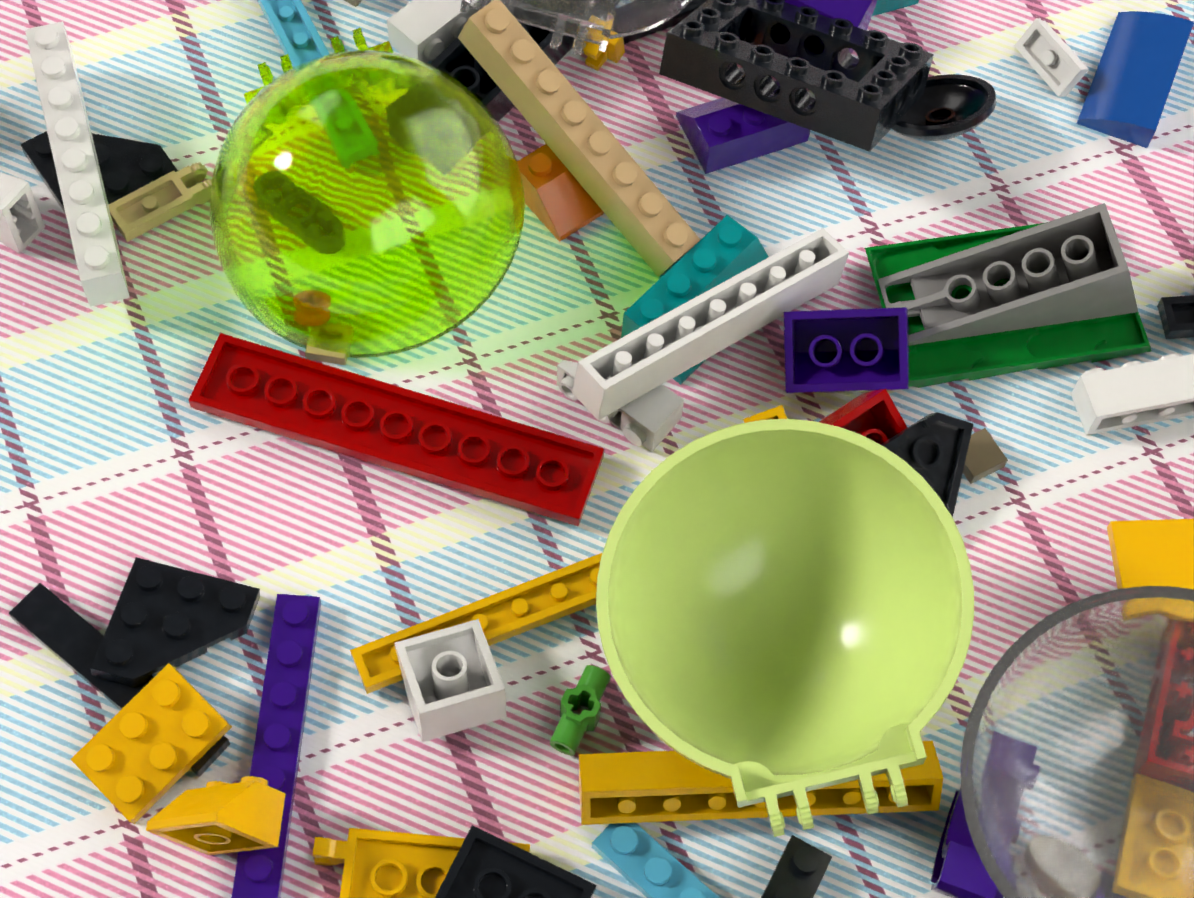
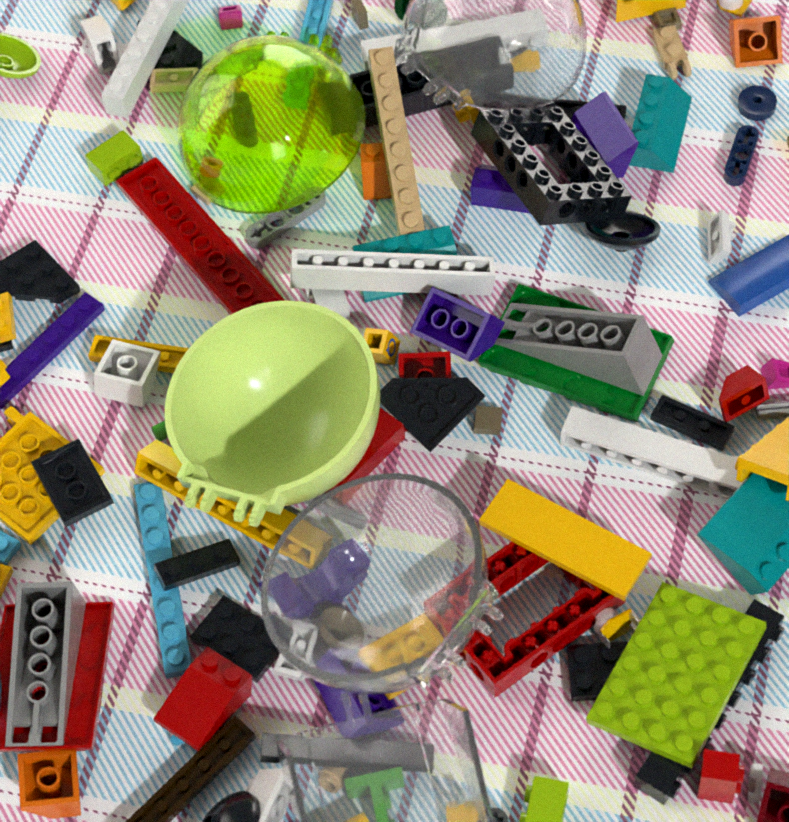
camera: 45 degrees right, 5 degrees down
(156, 74) = (231, 17): none -> dark pink slope
(157, 368) = (114, 158): none -> lime brick
(484, 324) = (289, 221): none -> light grey beam

